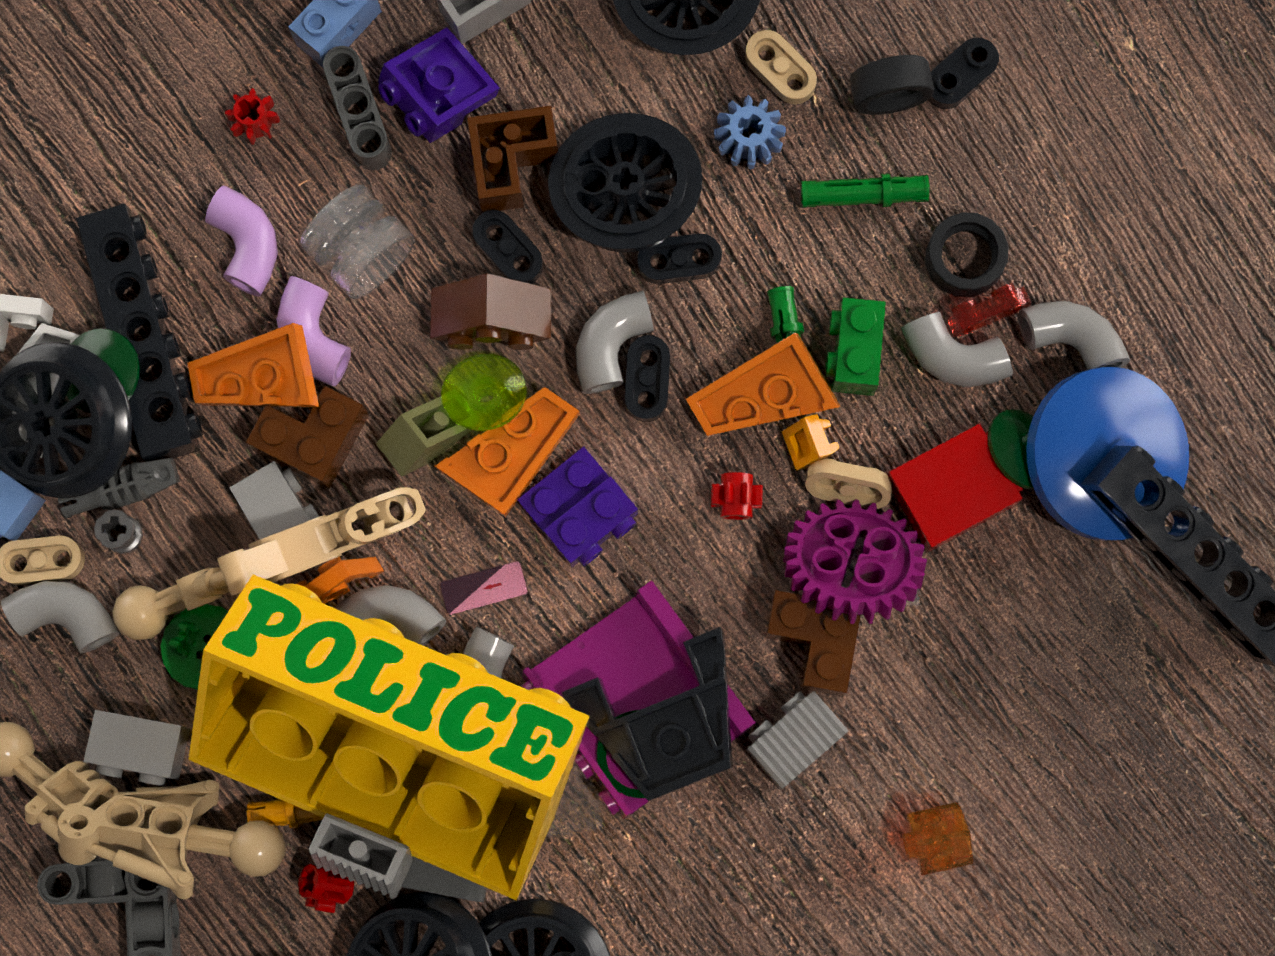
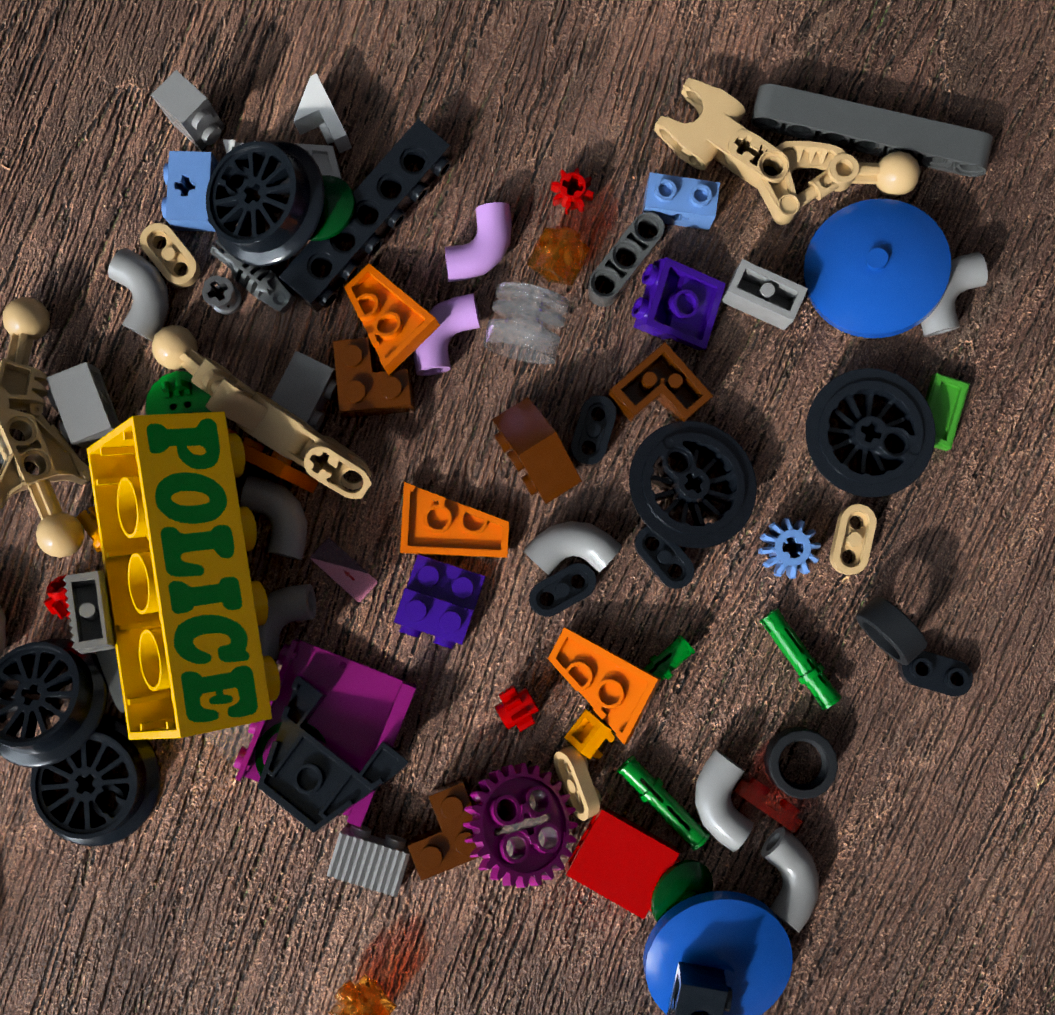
camera: 55 degrees right, 5 degrees up
(309, 169) = (559, 255): none -> clear orange brick
(420, 437) = (425, 460): olive slope -> none
(482, 377) = (482, 467): clear neon green dish -> none
(858, 346) = (680, 726): green brick -> none
(924, 412) = (693, 832): none -> green pin

